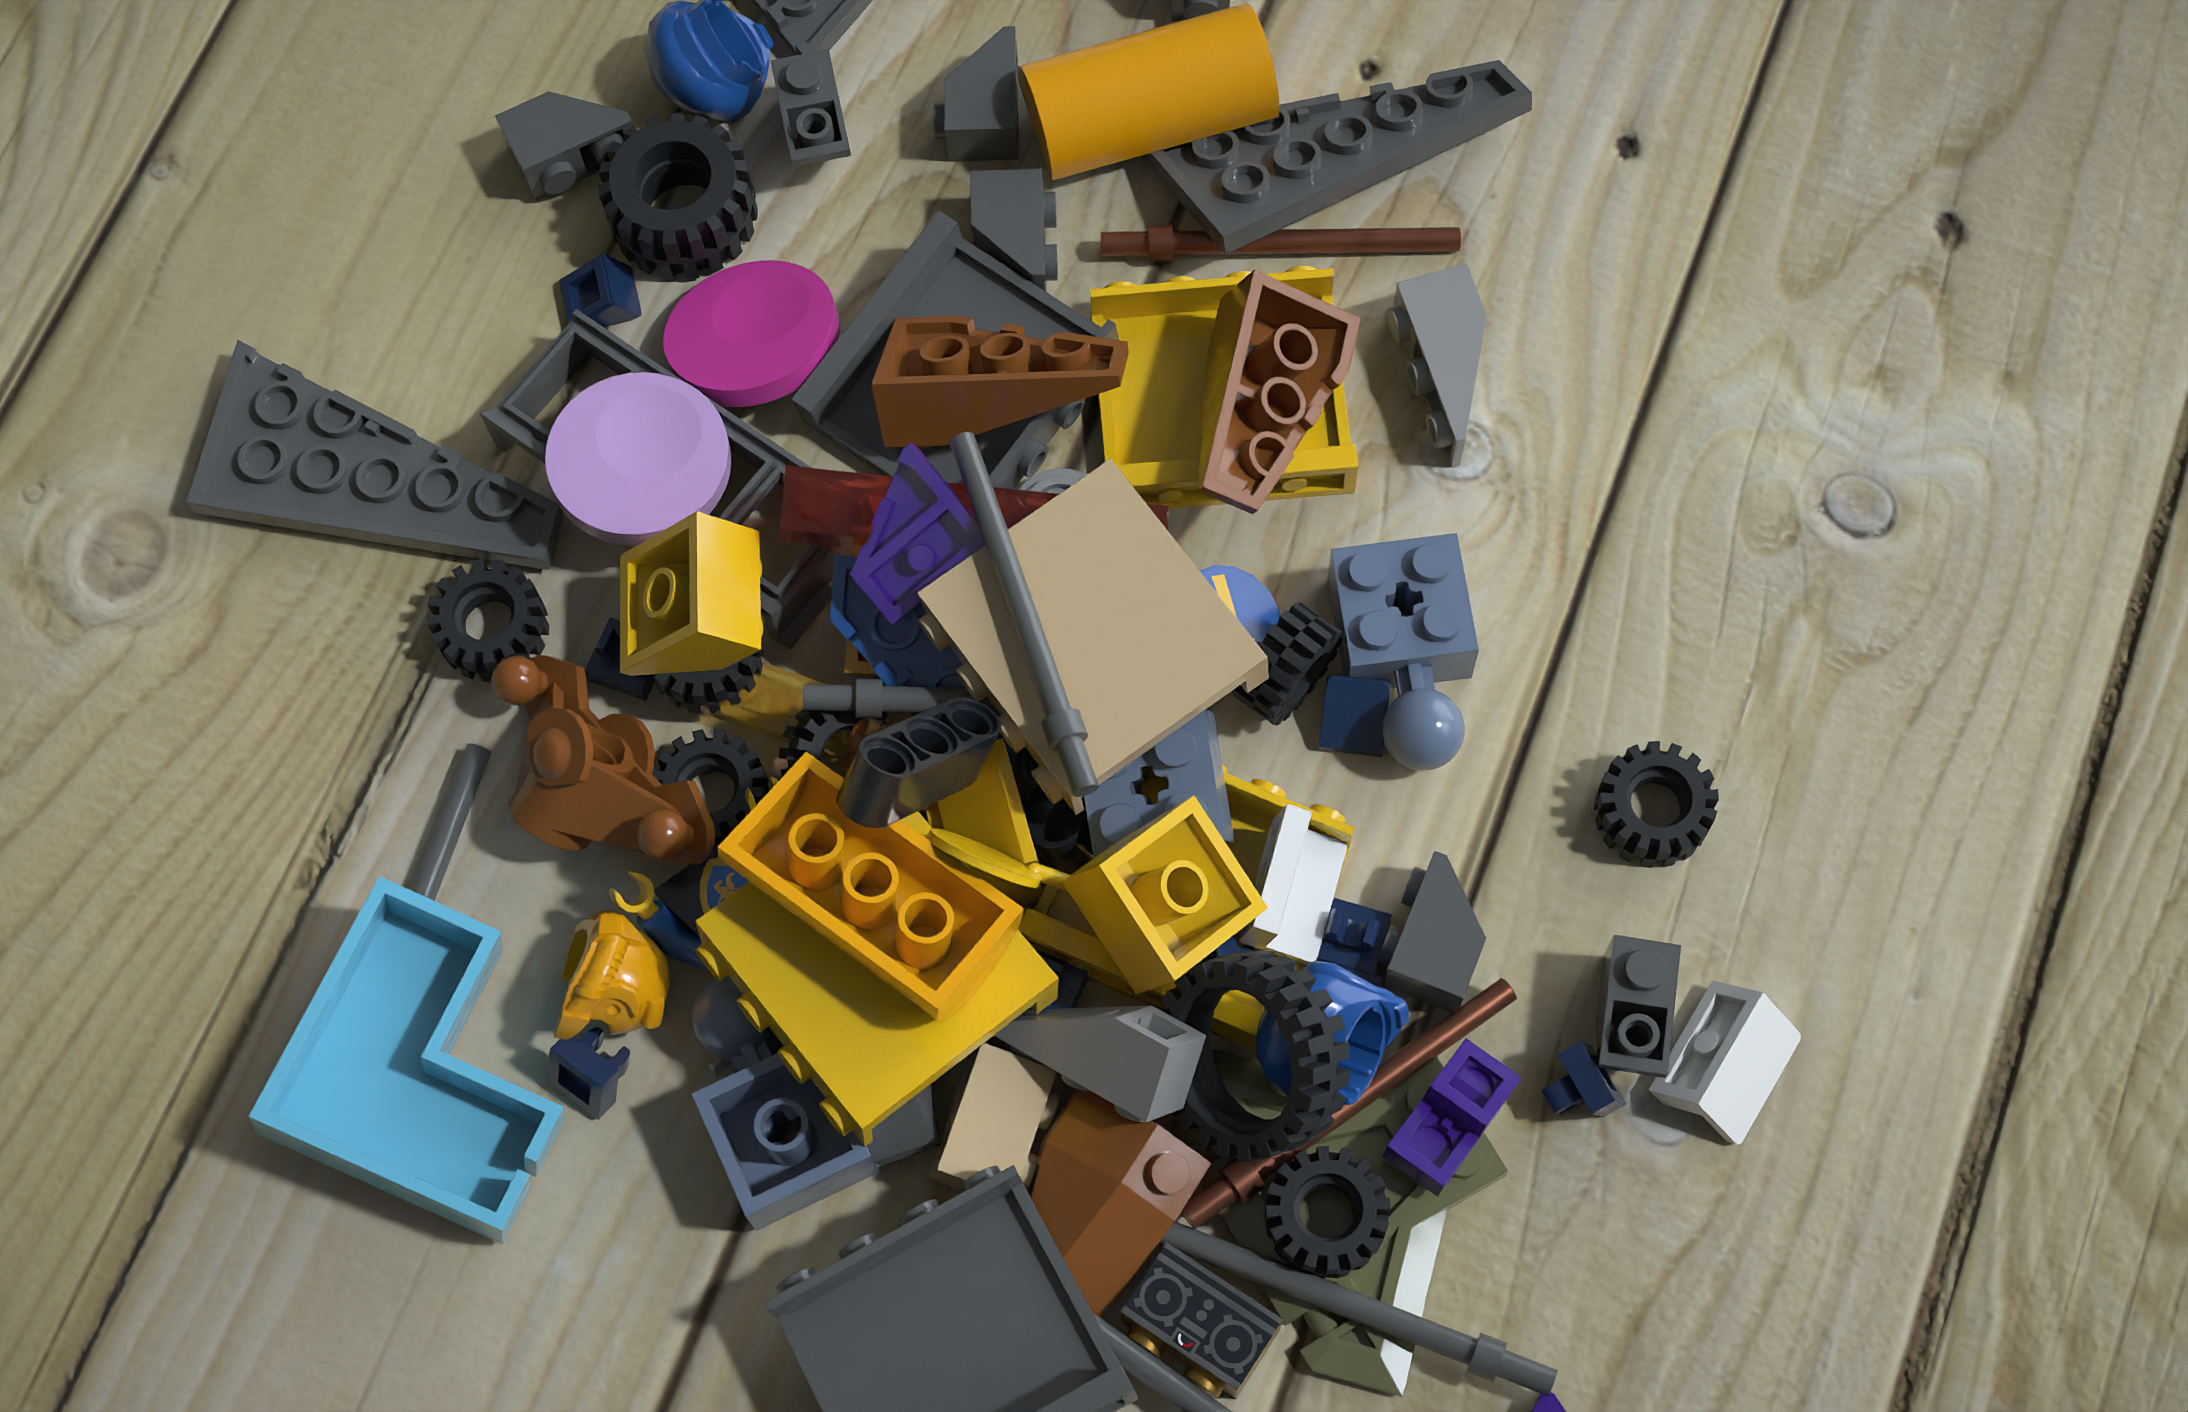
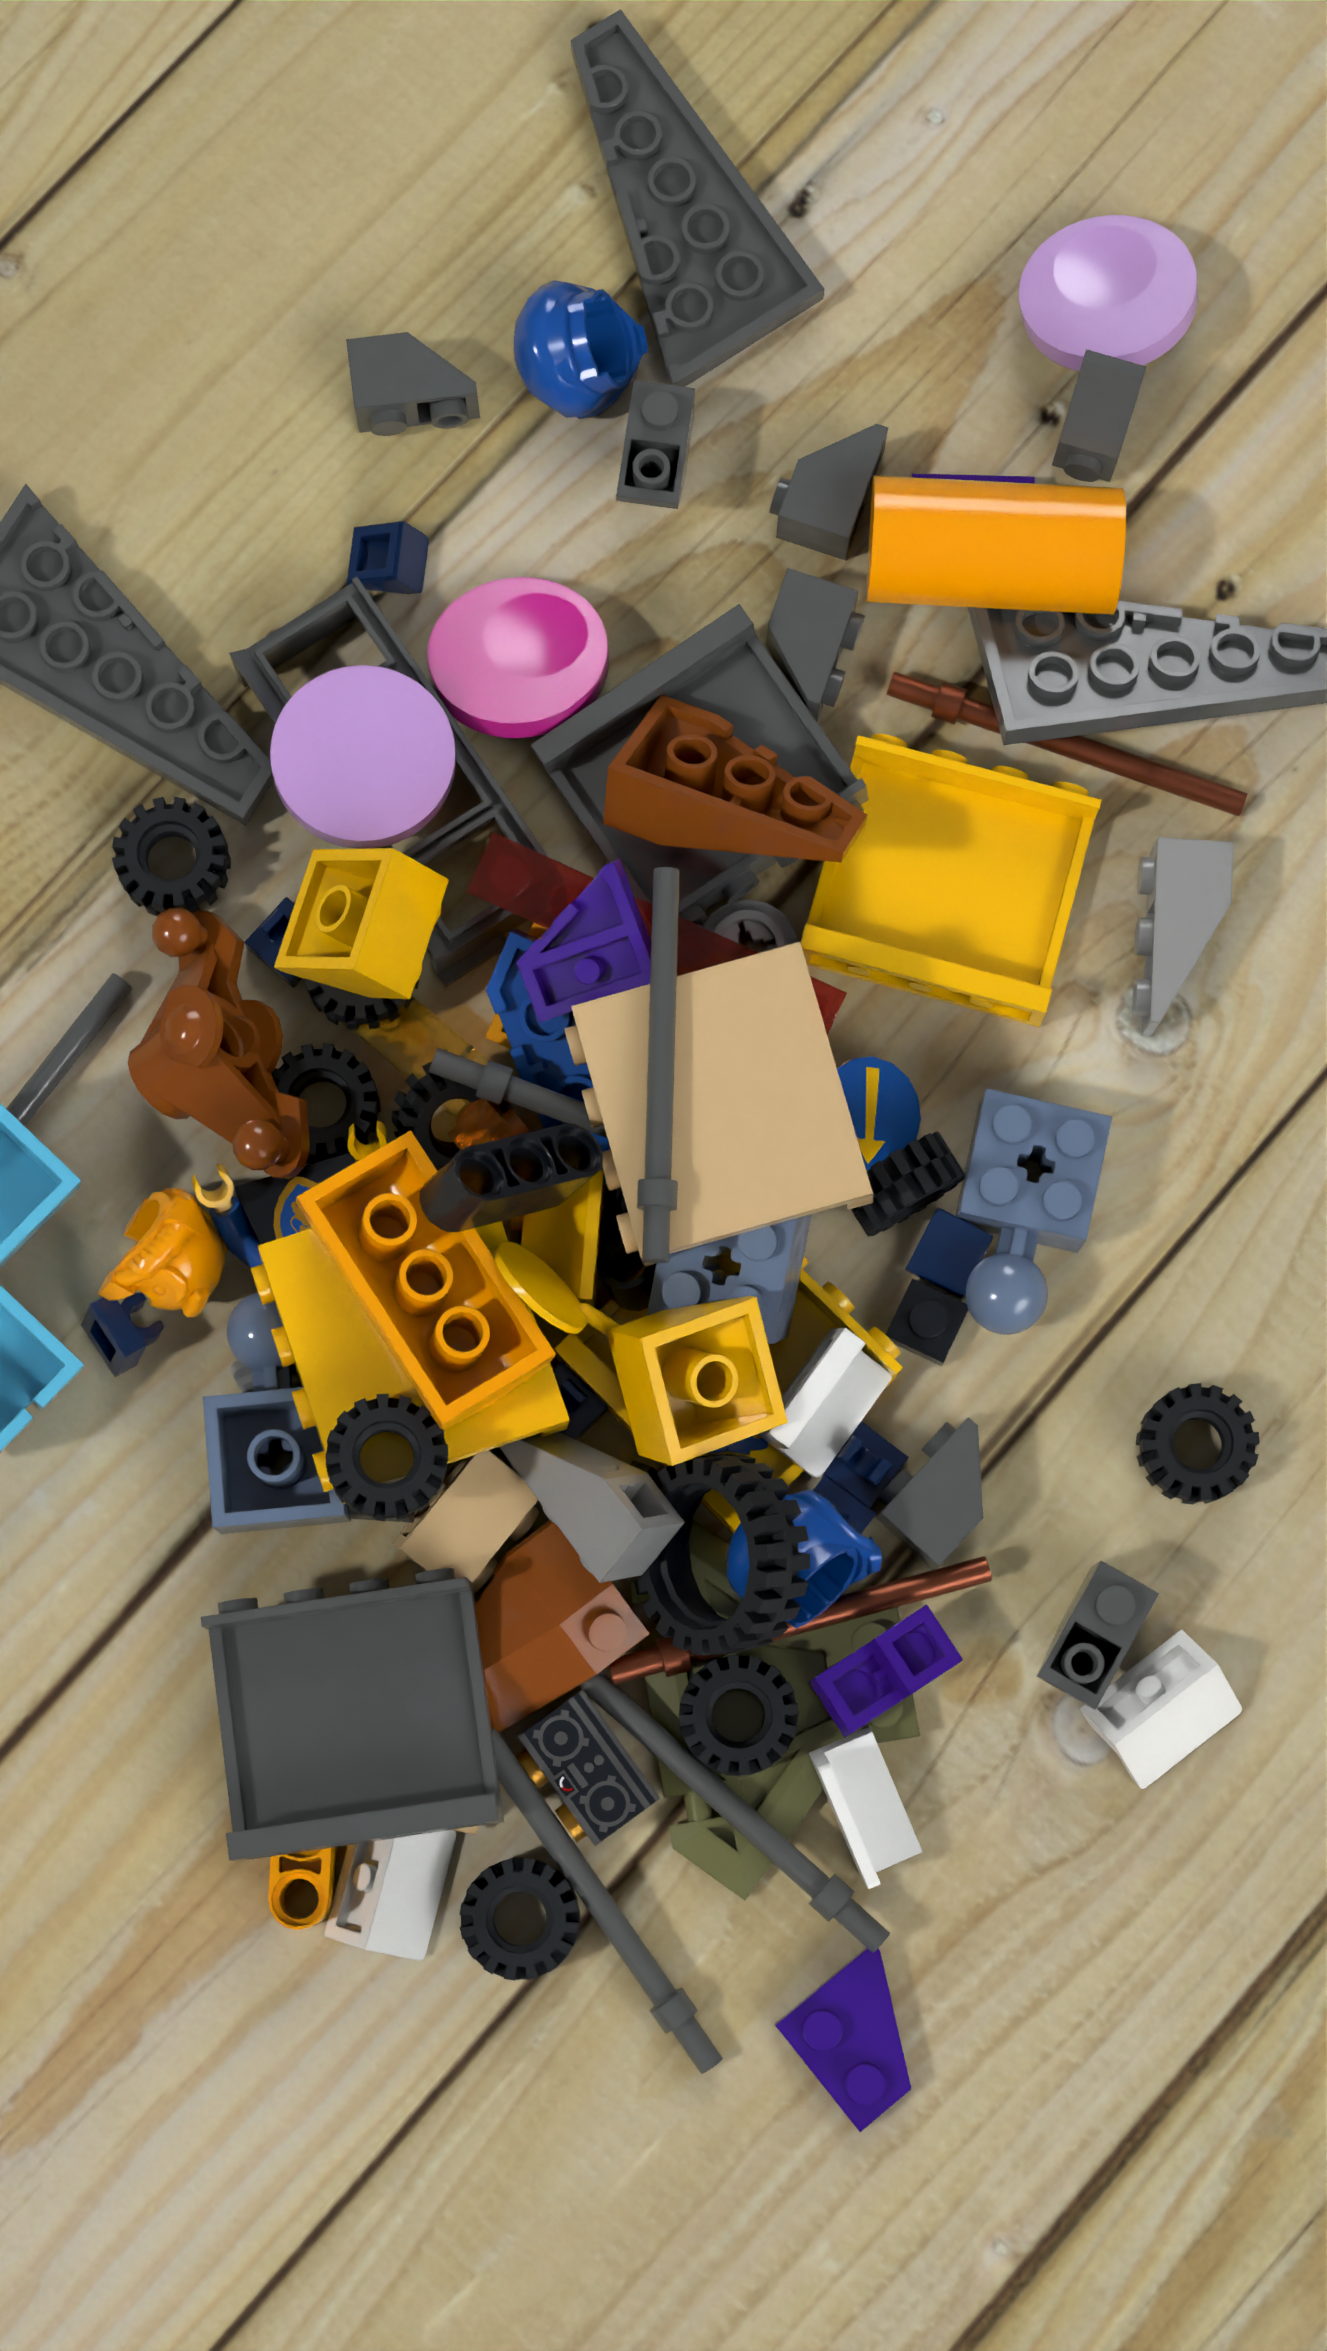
camera: 15 degrees right, 10 degrees up
(668, 157) = (486, 442): black tyre -> none
(882, 1031) = (382, 1416): none -> black tyre
(1265, 385) = (993, 893): dark orange wedge -> none
(1359, 786) = (927, 1322): none -> black plate
(1482, 1255) = (865, 1804): none -> white panel
(1583, 1084) = (1028, 1693): dark blue tile -> none

